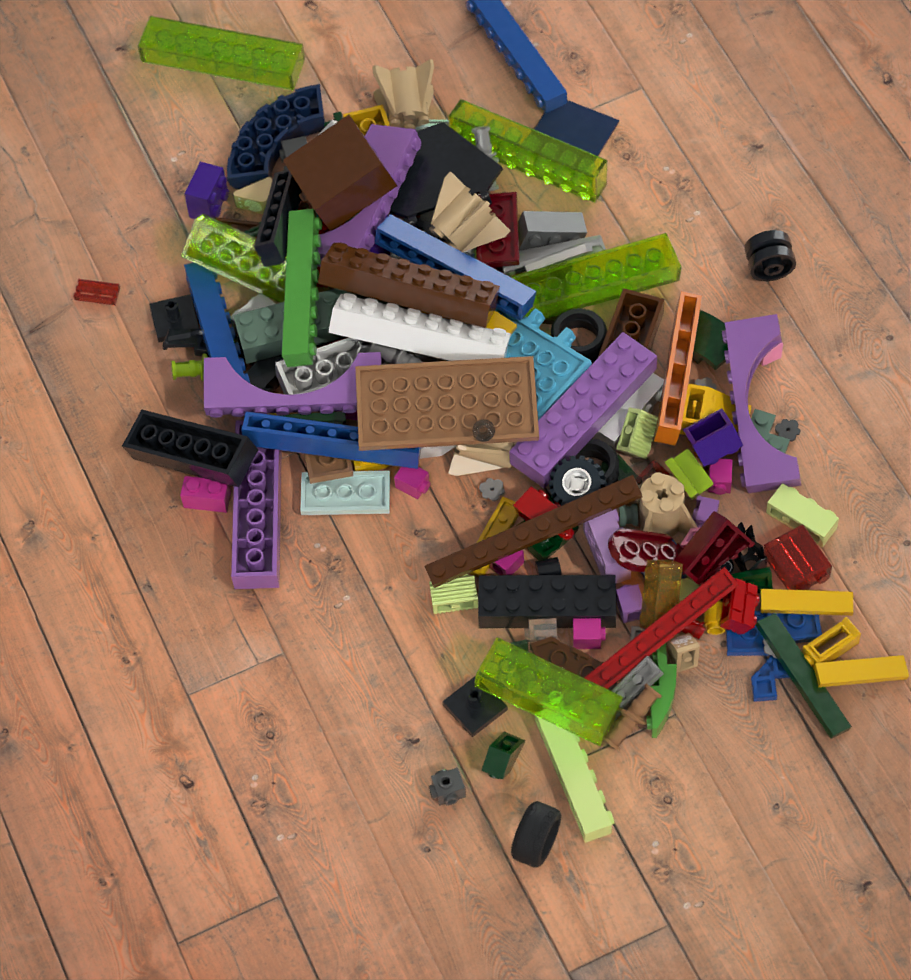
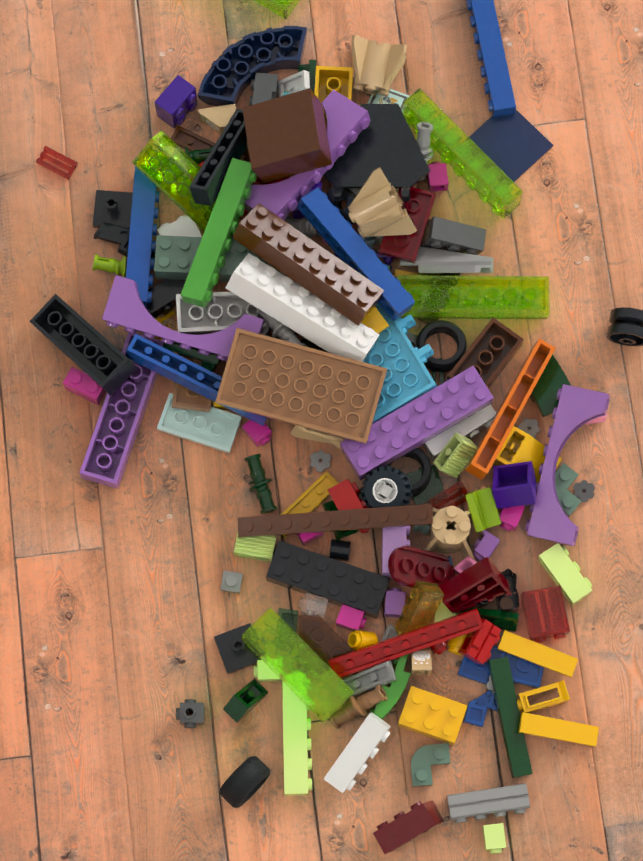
camera: 15 degrees right, 15 degrees up
(433, 528) = (260, 483): none -> dark green piece
(441, 640) = (231, 582): none -> light grey plate
(485, 436) = (321, 424): clear smoke plate -> none
(511, 181) = (437, 177): none -> dark pink brick
(515, 718) = (264, 673): none -> yellowish green brick
(606, 648) = (361, 639): none -> yellow brick
(650, 763) = (357, 752): none -> white brick
(717, 702) = (432, 715): none -> yellow brick
(726, 754) = (423, 759): none -> sand green plate
(735, 824) = (407, 826): none -> dark red wedge
(815, 771) = (487, 802): none -> light grey brick
(837, 805) = (494, 838): none -> yellowish green brick

